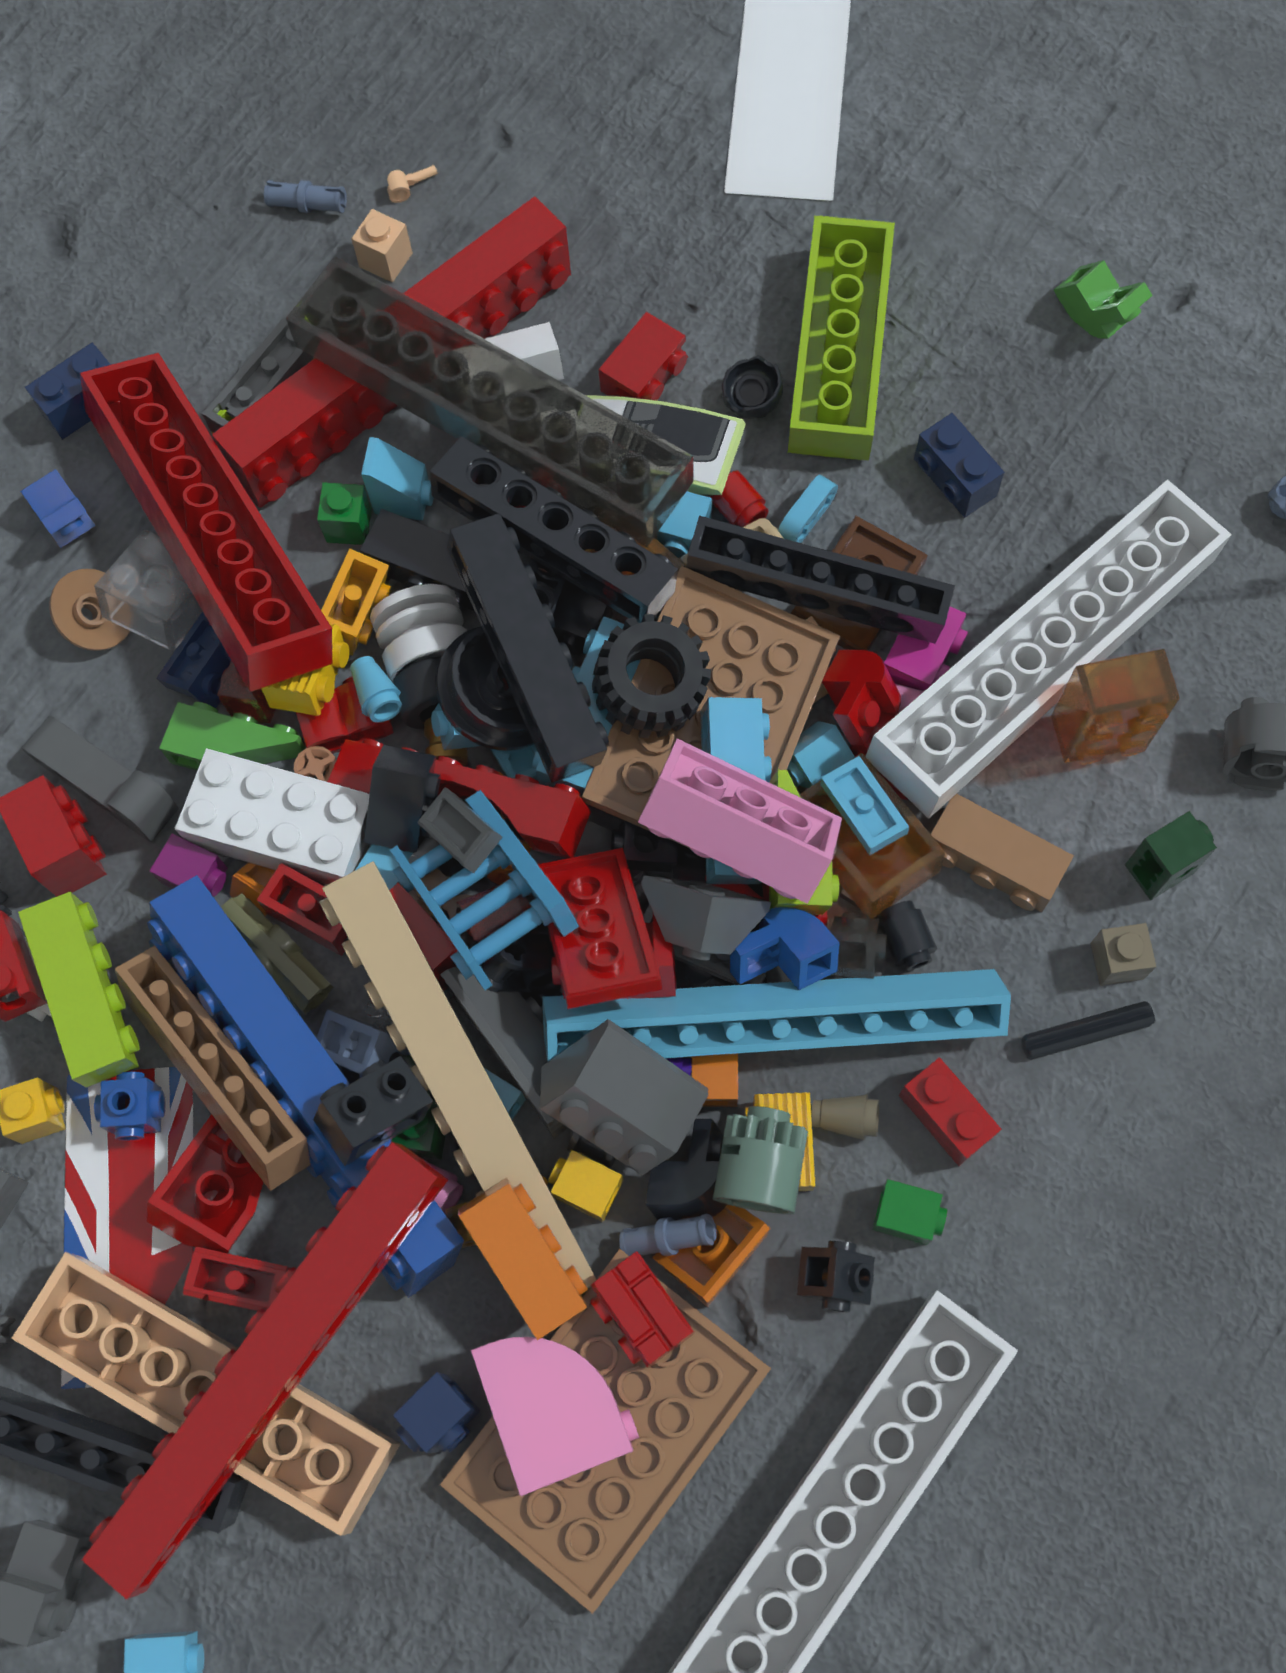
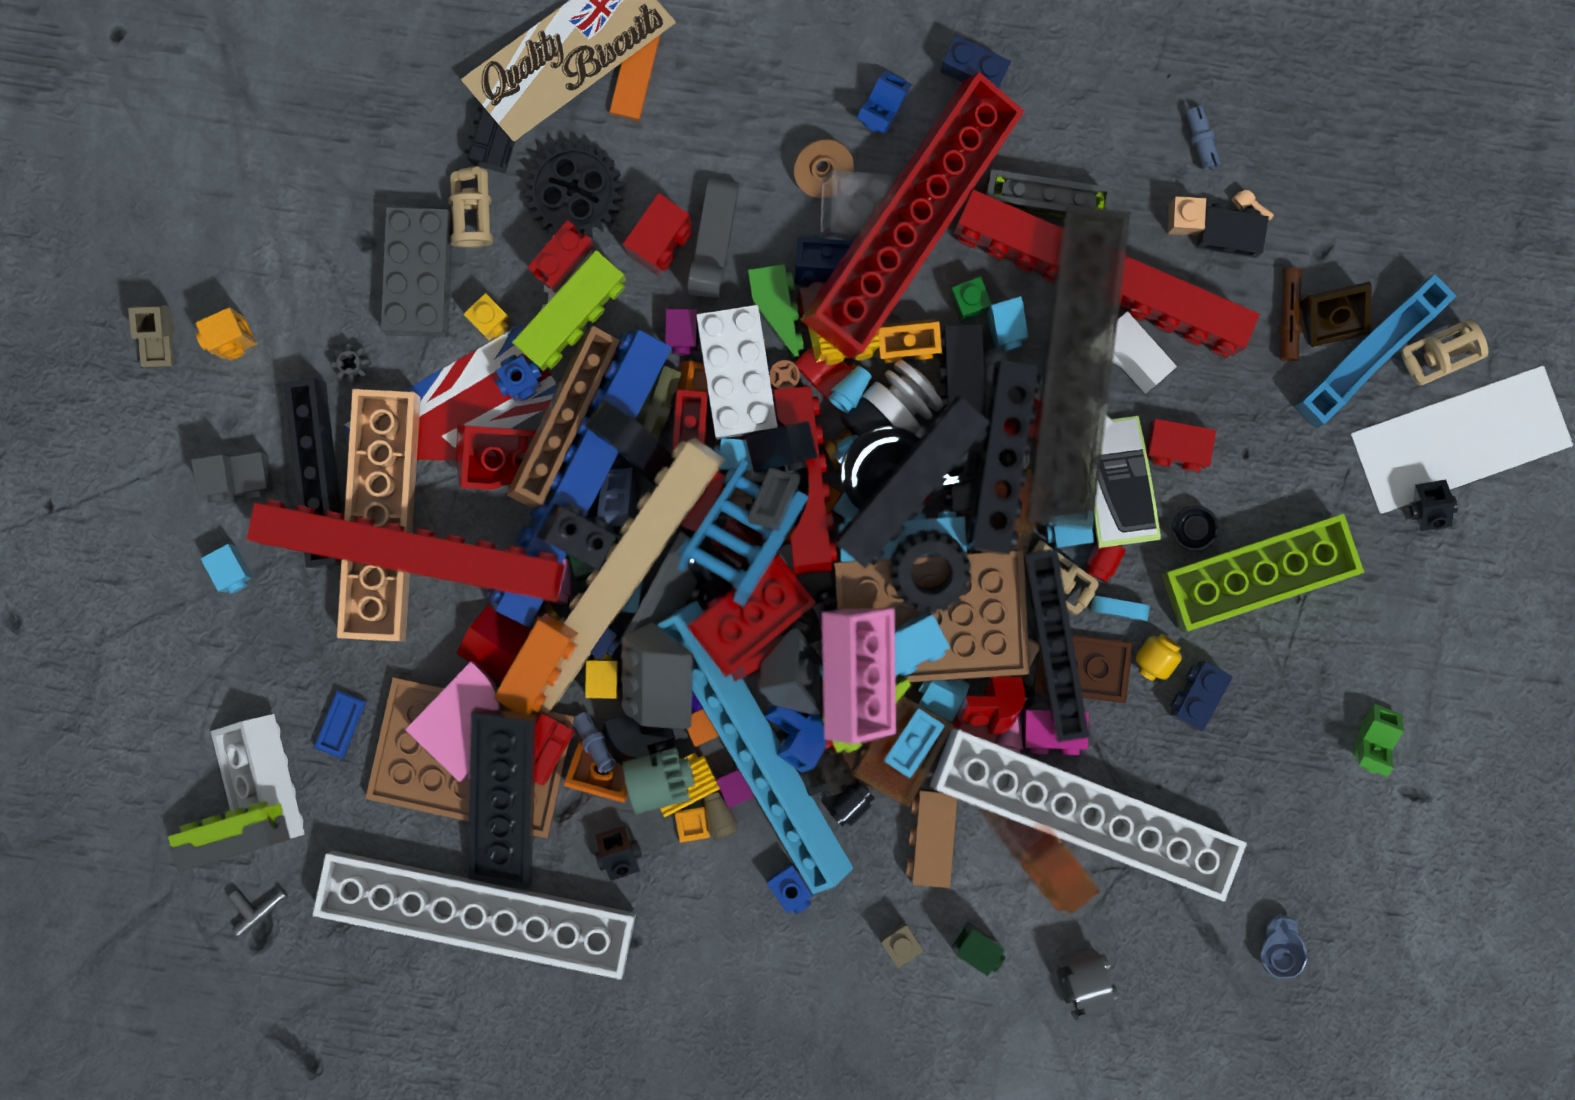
camera: 55 degrees right, 15 degrees up
(232, 1279) = (448, 502): red brick -> none
(288, 974) = (630, 440): none -> black beam
(430, 206) = (1233, 231): none -> black brick
(436, 1416) = (427, 658): dark blue brick -> none
(466, 1311) = (494, 642): none -> red slope
(469, 1601) = (340, 724): none -> blue tile
(541, 1147) = (608, 642): none -> dark blue plate
(567, 196) = (1289, 349): none -> reddish brown pin
(578, 143) = (1337, 314): none -> dark brown slope
(658, 163) = (1374, 350): none -> dark azure arch
(681, 61) = (1438, 354): none -> tan piece
(682, 1398) = (501, 797): none -> black plate
(818, 1072) = (734, 788): none -> magenta brick
(841, 1159) = (692, 824): none -> light orange tile
(850, 132) = (1433, 505): none -> black brick
(888, 492) = (1158, 657): none -> yellow head
(909, 1212) = (677, 880): green brick -> none
(949, 1111) = (749, 878): red brick -> none
(976, 1077) = (790, 877): none -> blue brick
(1088, 1030) = (844, 942): black axle -> none

